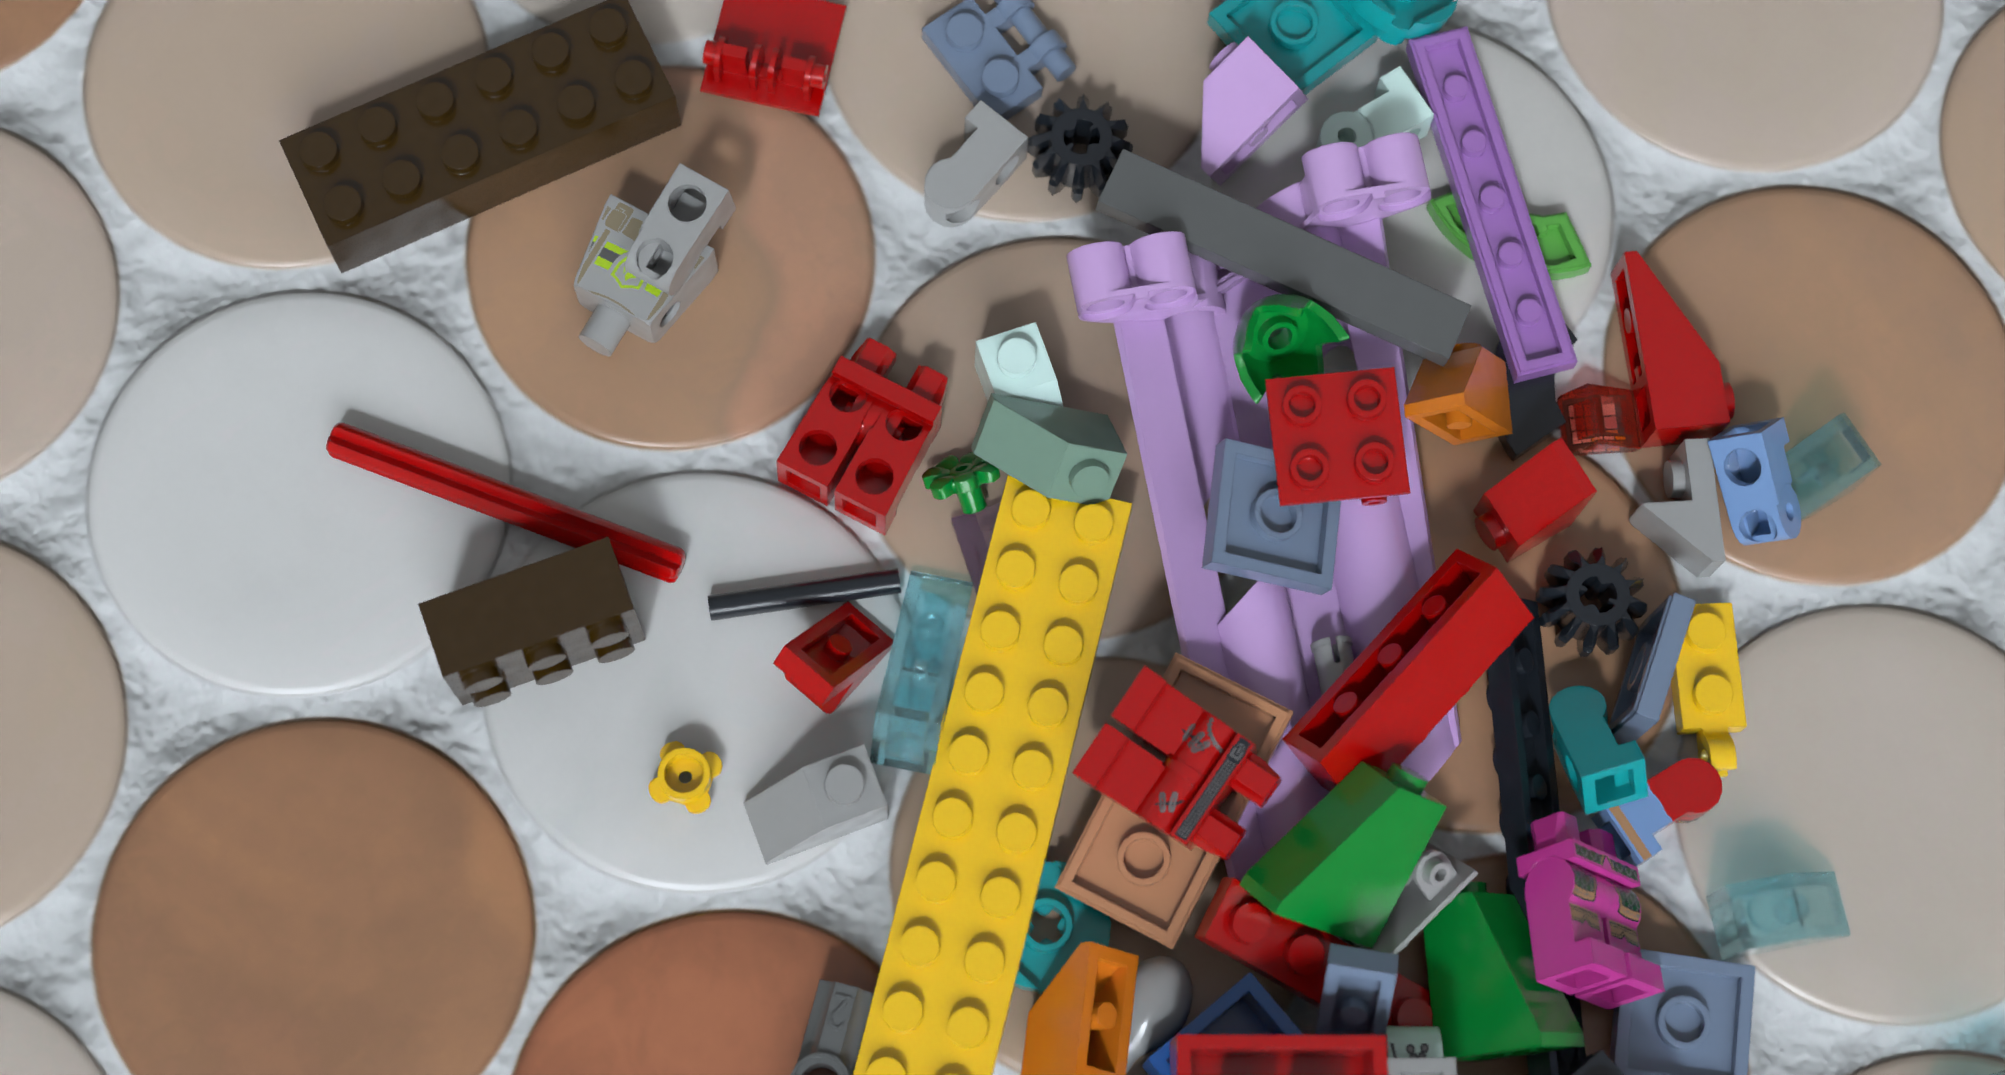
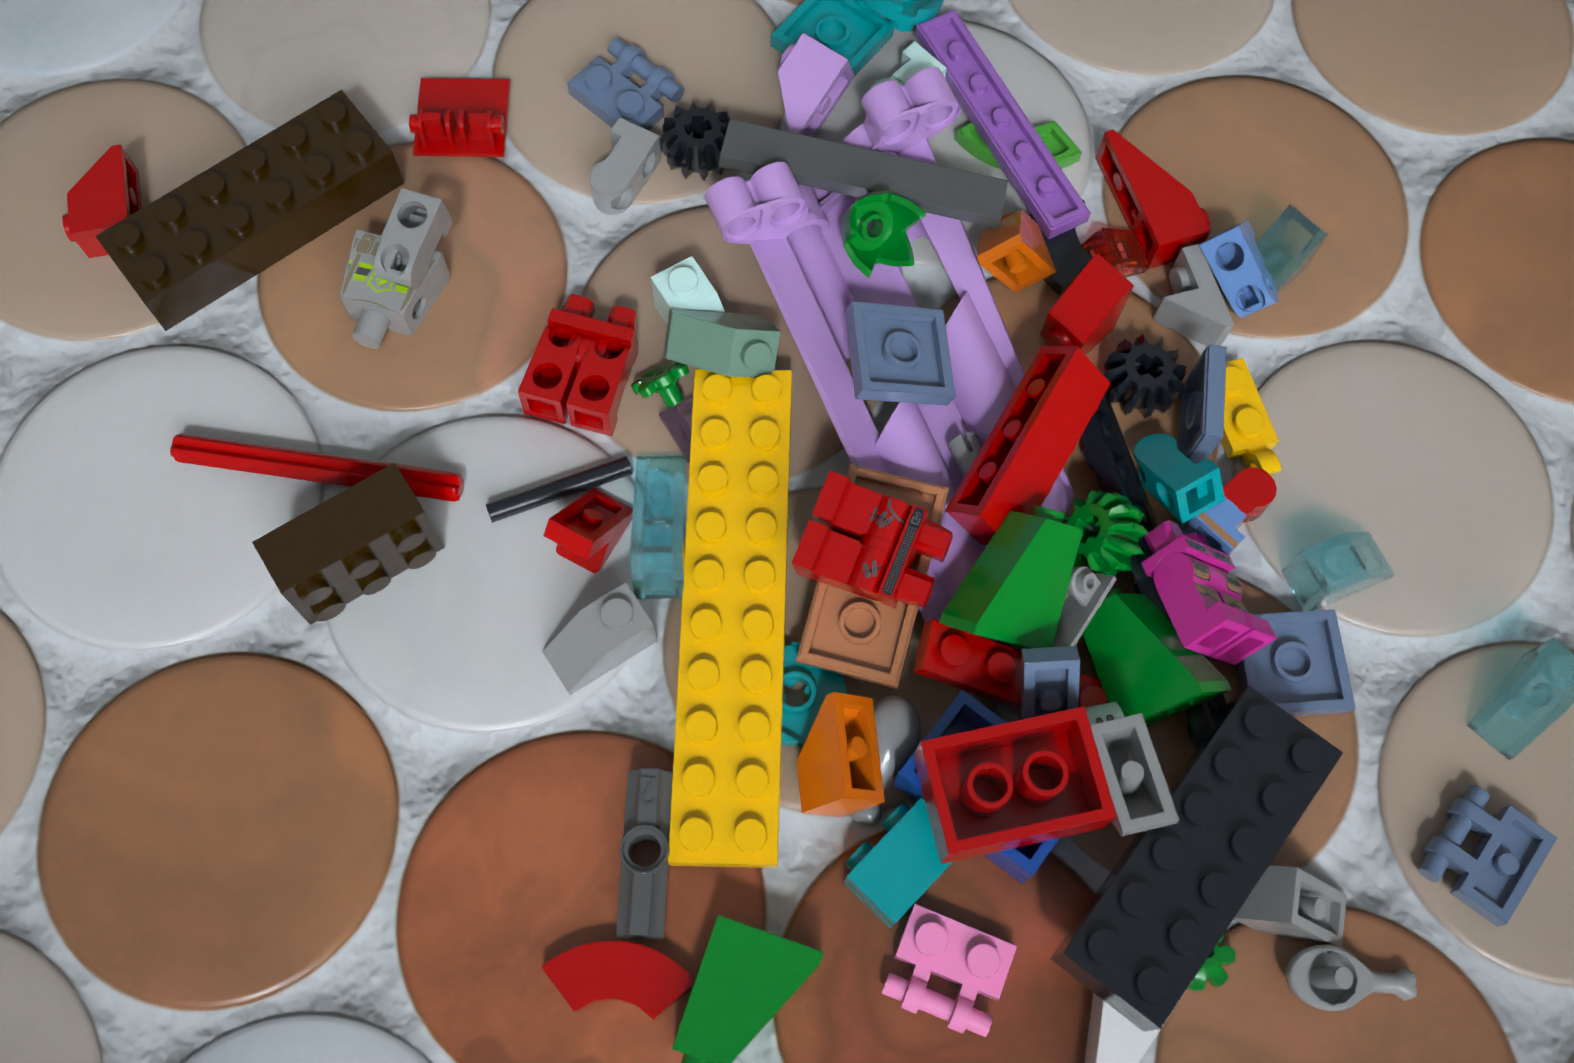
camera: 10 degrees left, 5 degrees down
(292, 84) = (102, 199): none -> red slope
(676, 760) = (483, 630): yellow plate -> none
(1337, 437) = (934, 286): red hinge -> none
(1483, 808) = (1108, 533): none -> green gear

